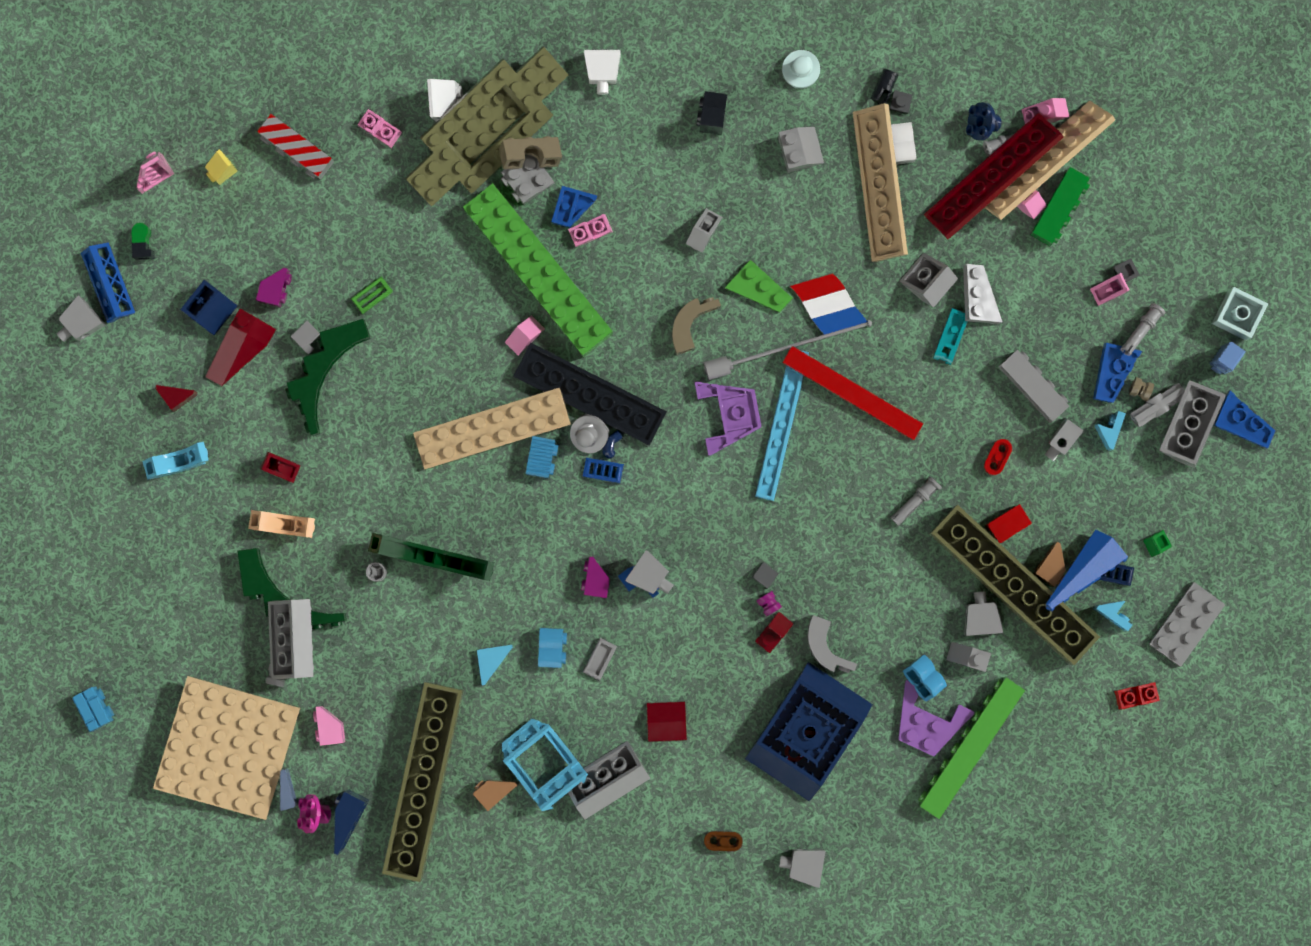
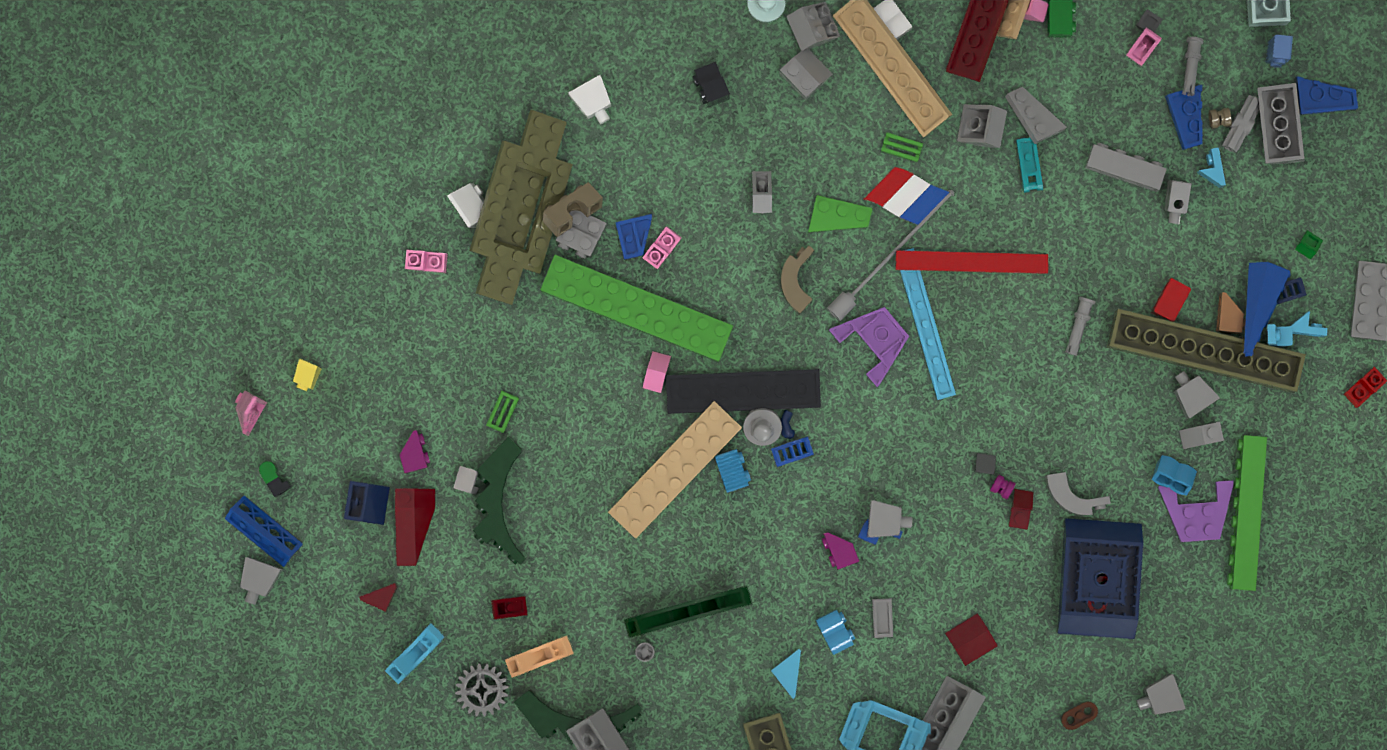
camera: 30 degrees left, 0 degrees up
(210, 541) = (473, 690): none -> light grey gear
(295, 146) = (361, 319): brick -> none
(830, 111) = (813, 25): none -> light grey slope
(845, 256) = (917, 151): none -> bright green tile
(998, 457) = (1130, 247): red plate -> none
(1086, 608) = (1279, 336): none -> medium azure slope

